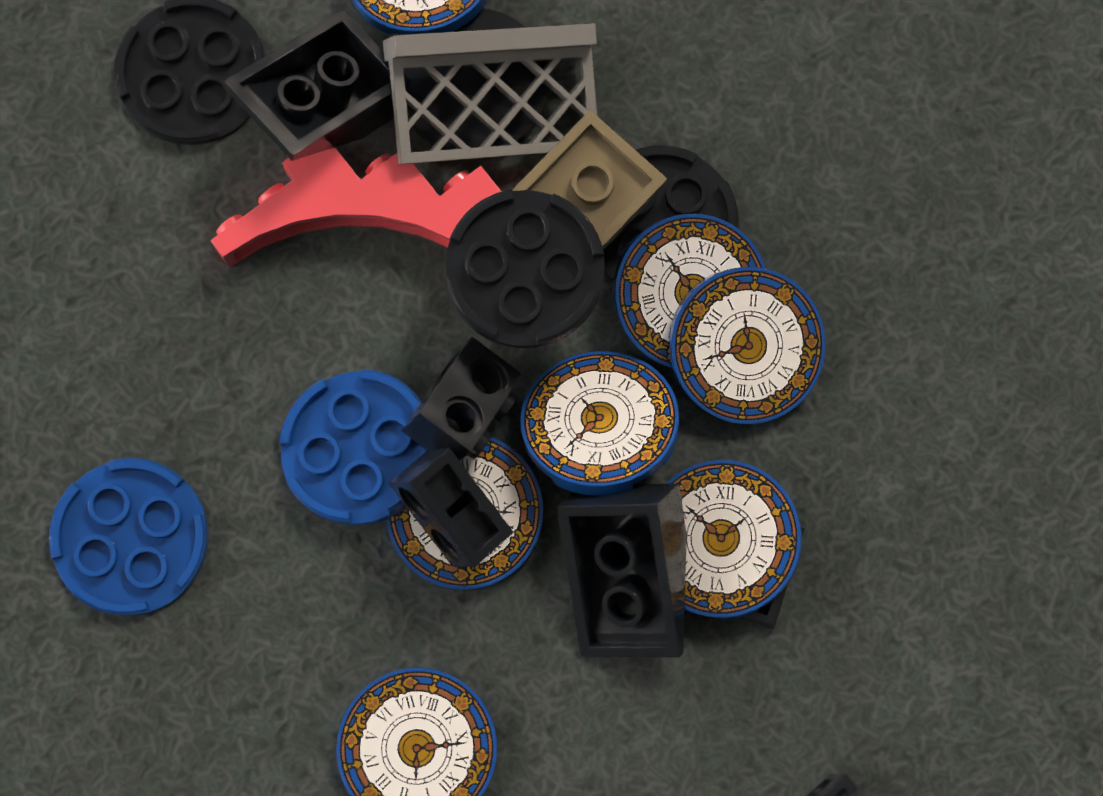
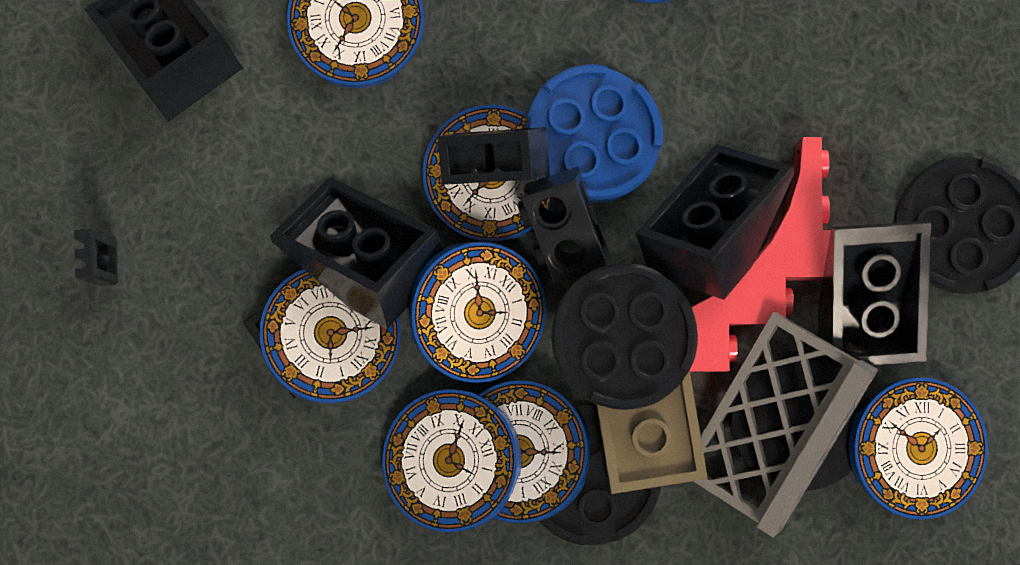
camera: 125 degrees right, 5 degrees up
(355, 276) = (715, 220): none -> black slope

